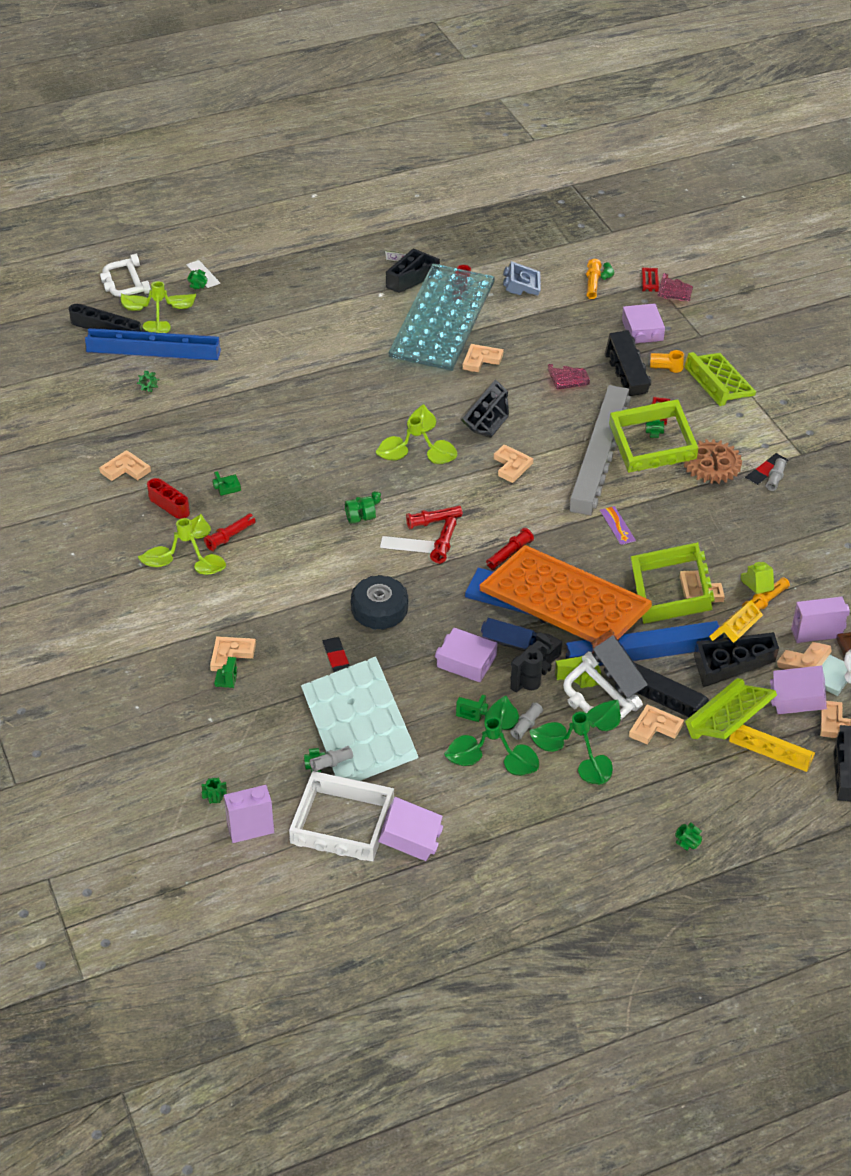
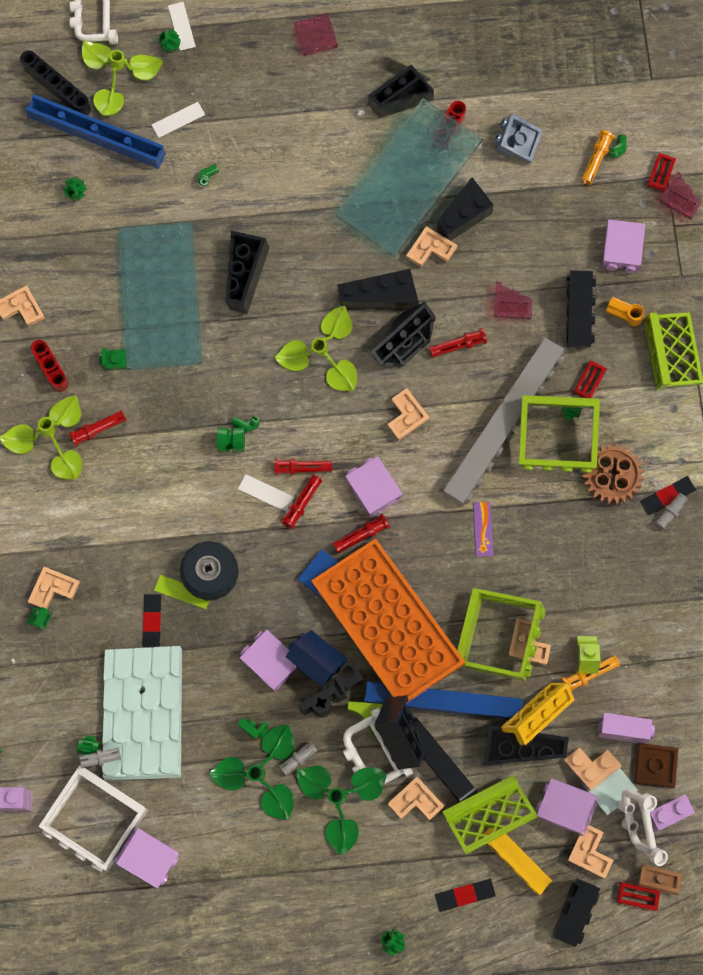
camera: 20 degrees right, 30 degrees up
(225, 326) = (178, 119): none -> white sticker
(253, 436) = (160, 296): none -> clear light blue plate
(261, 354) = (205, 174): none -> green arm
(322, 256) = (315, 34): none -> clear pink tile
(324, 398) = (244, 267): none -> black wedge
(356, 630) = (177, 590): none -> lime sticker
(450, 390) = (380, 292): none -> black wedge
(501, 327) = (465, 211): none -> black wedge
(505, 514) = (373, 486): none -> lavender brick
(541, 406) = (467, 341): none -> red pin
(738, 788) = (465, 895): none -> black sticker

